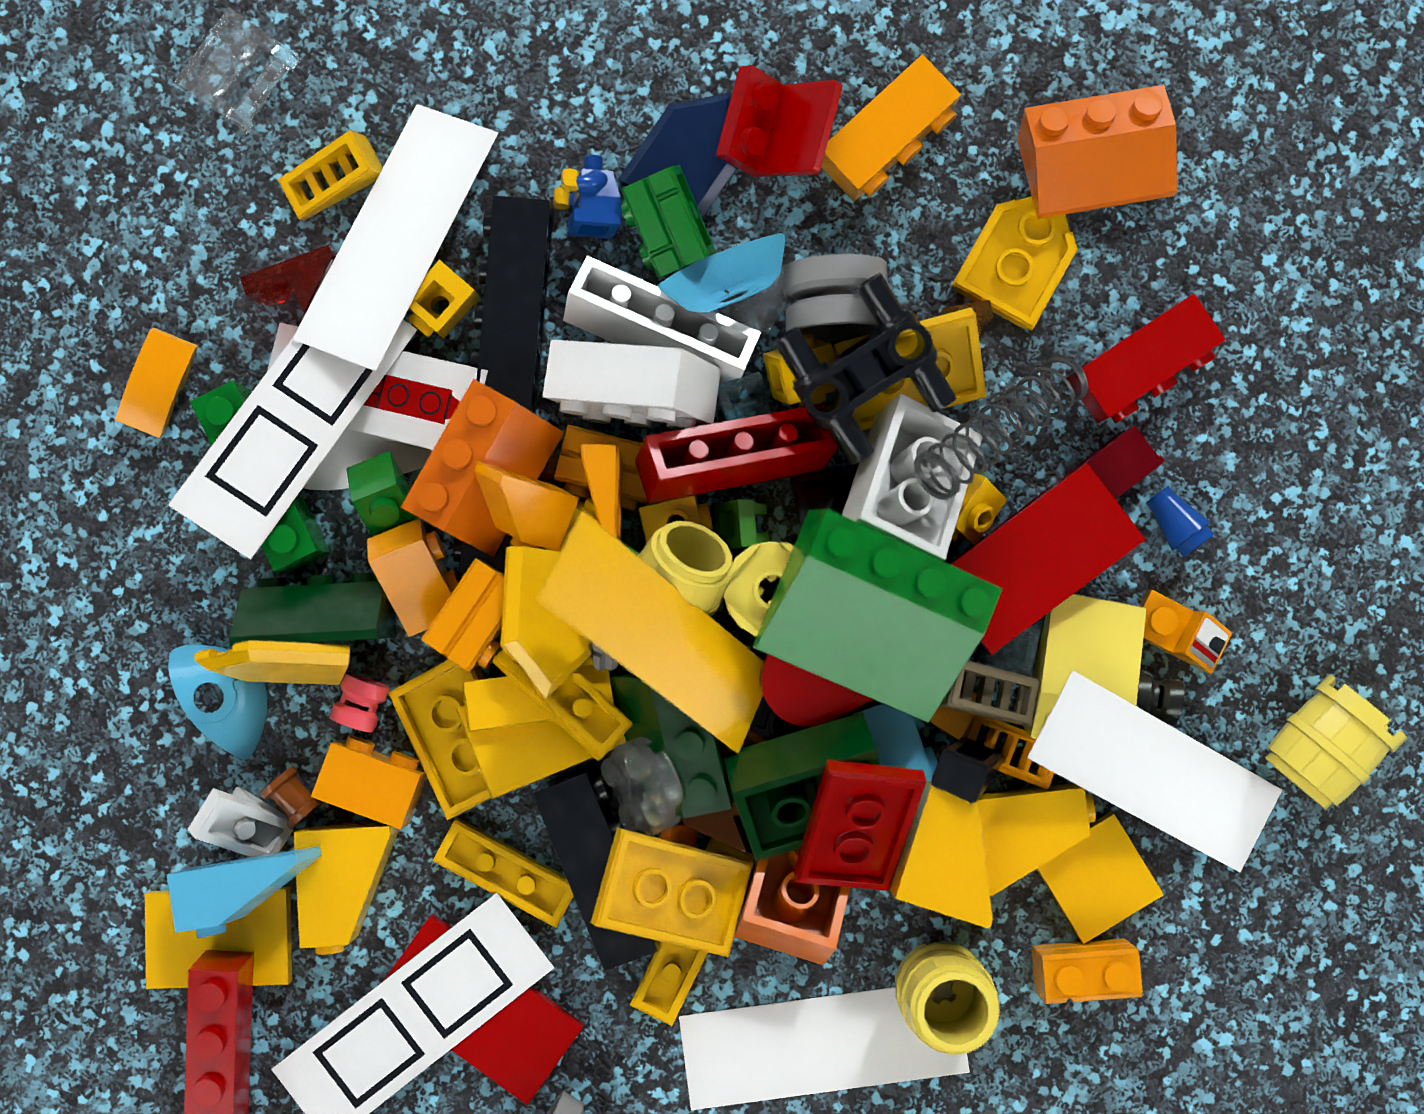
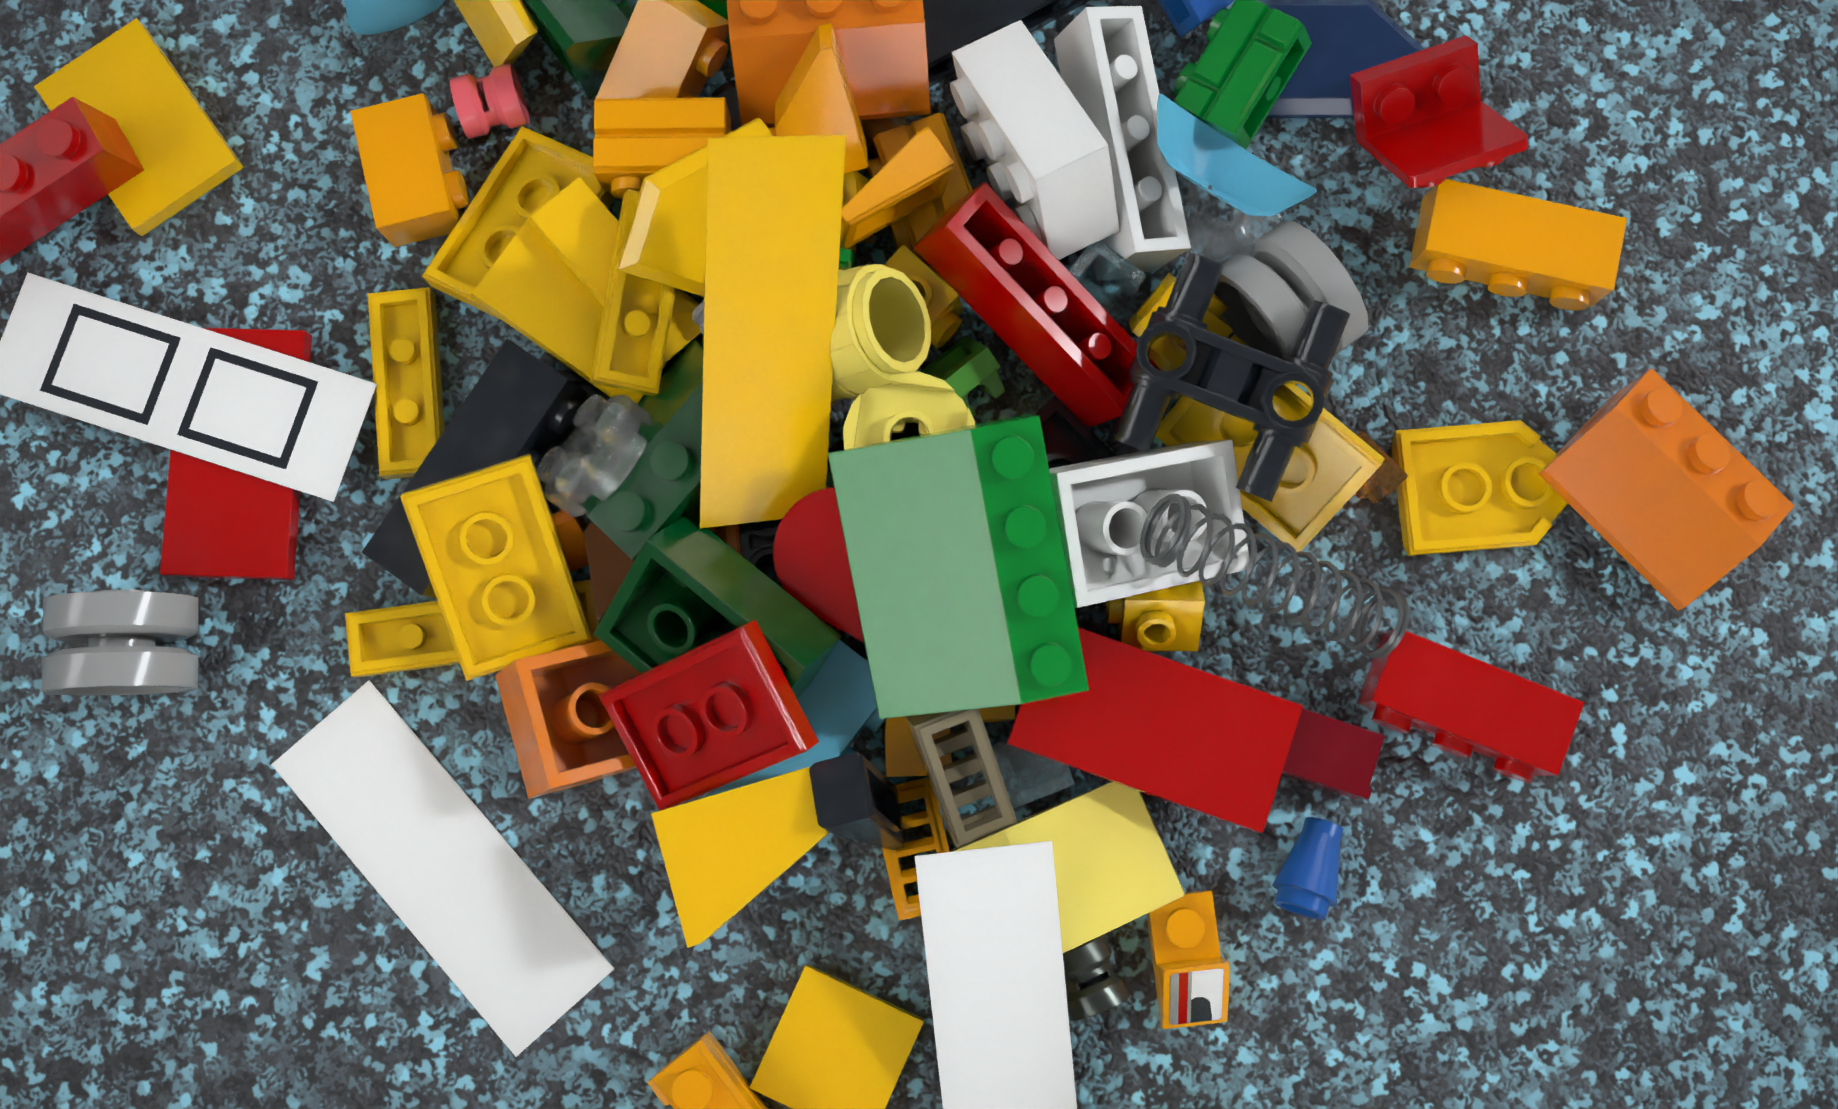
camera: 60 degrees right, 5 degrees down
(221, 892) = (192, 93): medium azure slope -> none
(240, 823) = (274, 64): white slope -> none
(291, 797) = (340, 92): dark orange bush -> none
(340, 883) = (279, 207): yellow slope -> none
(954, 1023) = (549, 984): light yellow piece -> none
(1031, 828) = (835, 927): yellow slope -> none

